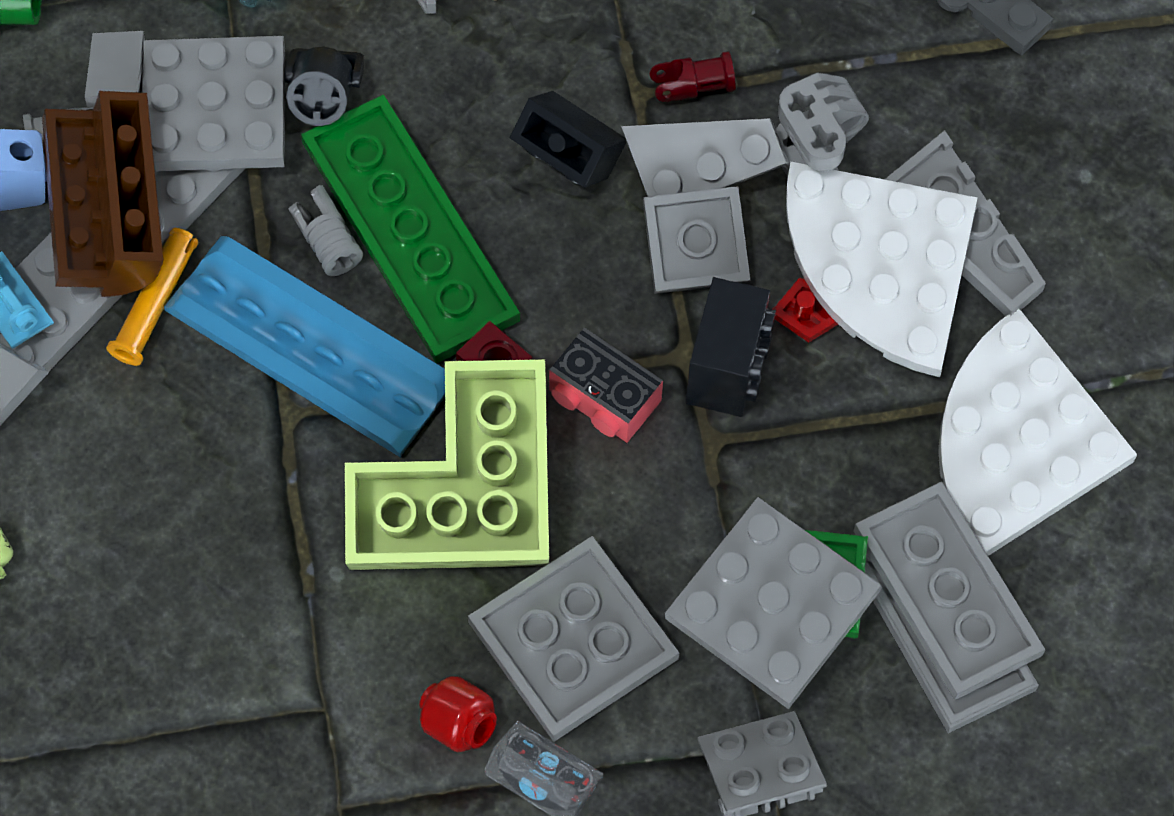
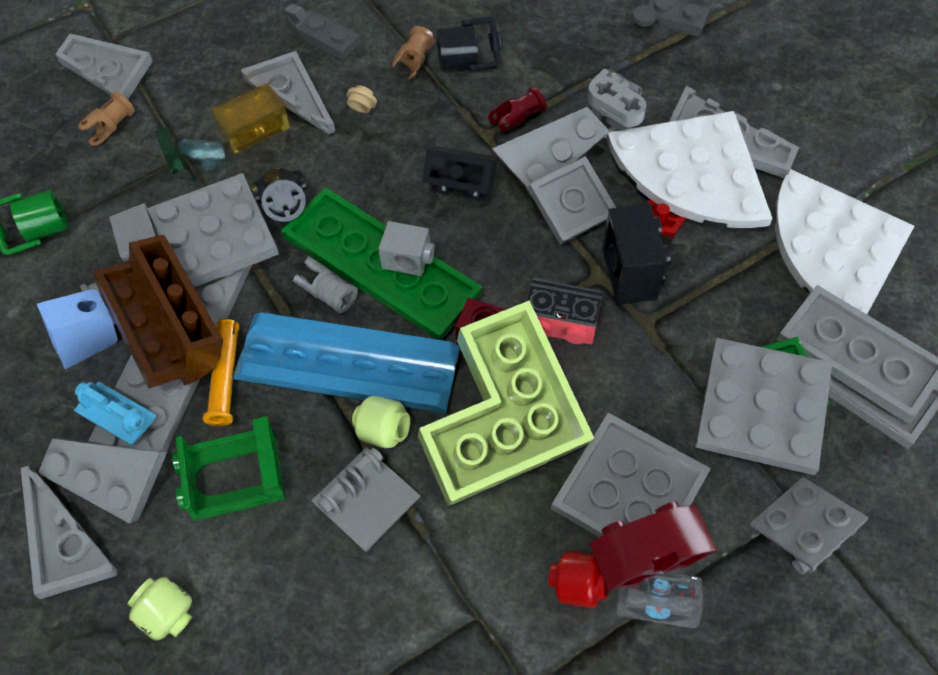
camera: 20 degrees left, 5 degrees down
(77, 390) = (193, 458): none -> green panel
(257, 521) = (366, 498): none -> light grey hinge
(314, 436) = (381, 422): none -> yellowish green head
(441, 225) = (406, 248): none -> light grey brick
(550, 708) = (652, 545): none -> dark red brick

